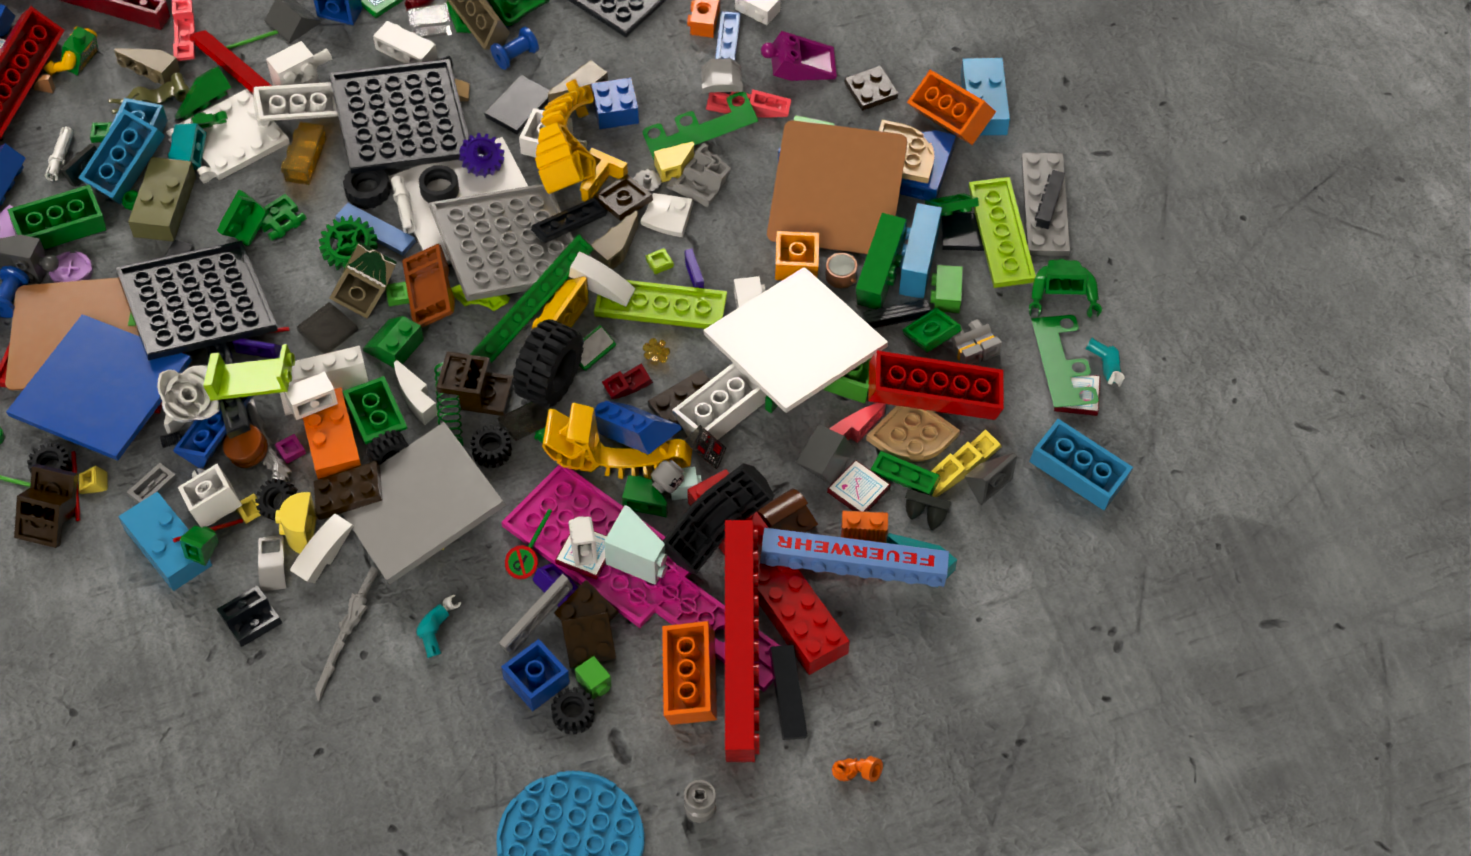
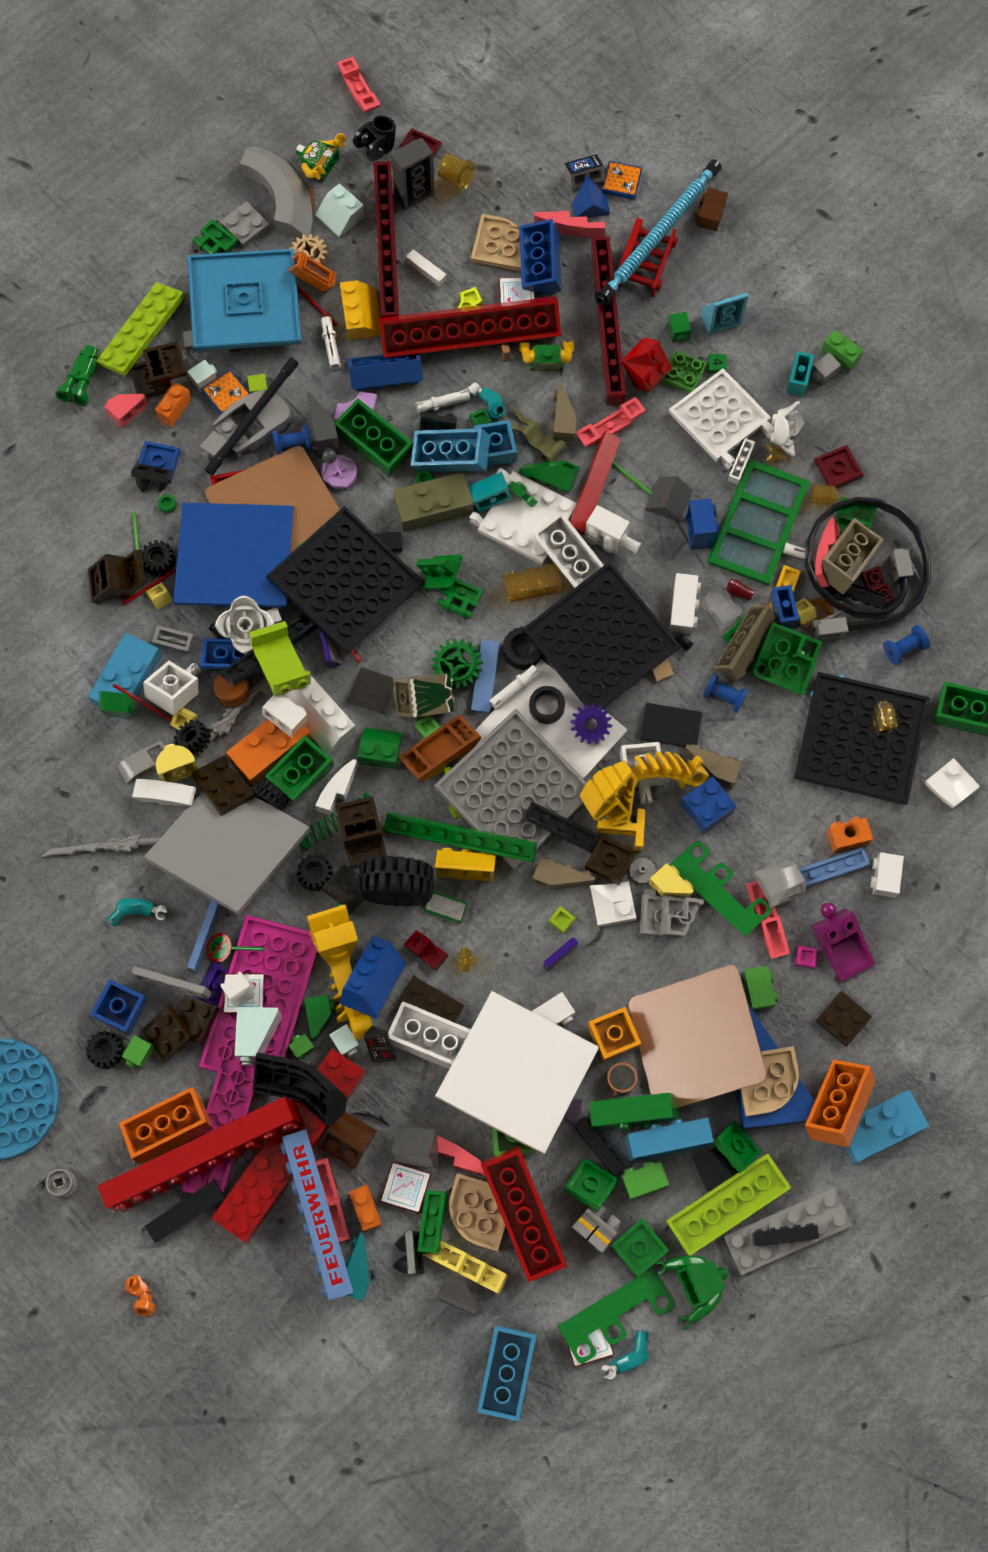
camera: 65 degrees right, 15 degrees up
(90, 113) = (492, 399): none -> teal arm
(249, 616) = (91, 769): black slope -> none
(290, 448) = (246, 722): magenta plate -> none
(499, 568) = (204, 936): none -> medium blue tile
(601, 279) = (505, 884): white slope -> none
(667, 305) = (515, 942): lime plate -> none
(667, 476) = (332, 1027): light grey head -> none
(667, 520) = (301, 1046): none -> bright green plate
(799, 92) = (806, 957): none -> dark pink tile
(1009, 317) = (639, 1248): none -> green plate

